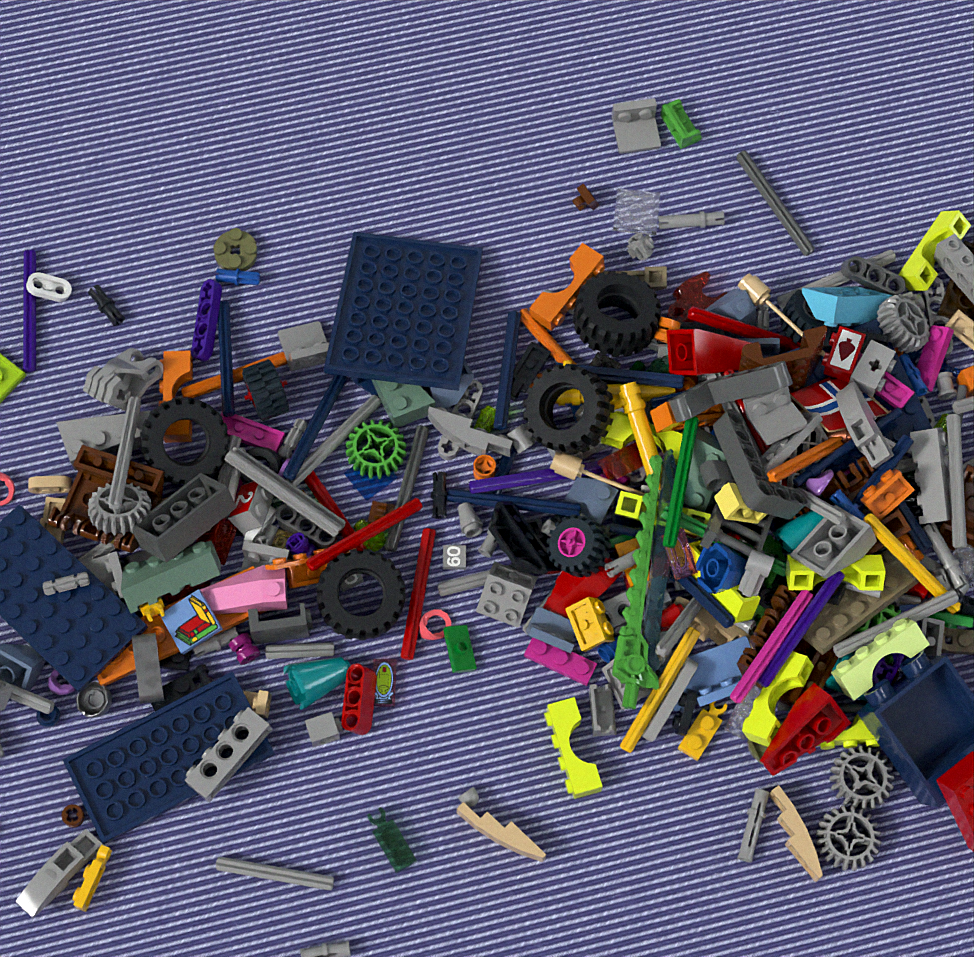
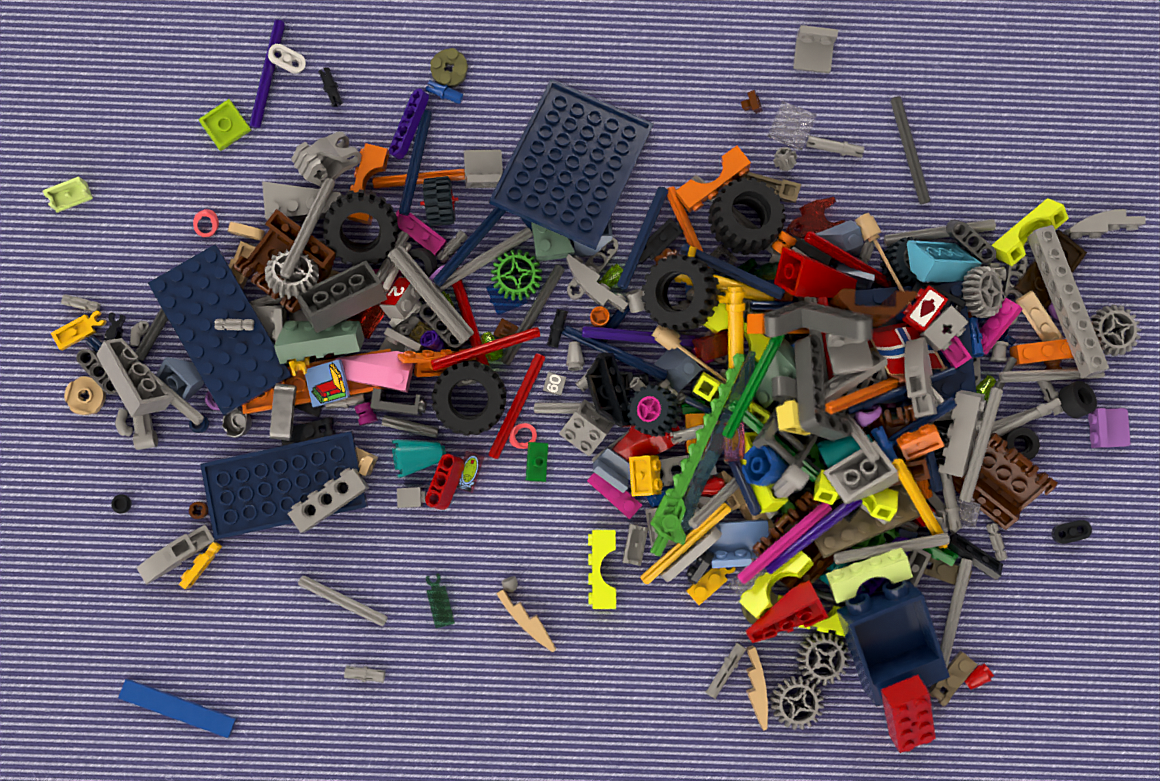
camera: 10 degrees right, 15 degrees up
(679, 124) = (852, 56): bright green hinge -> none

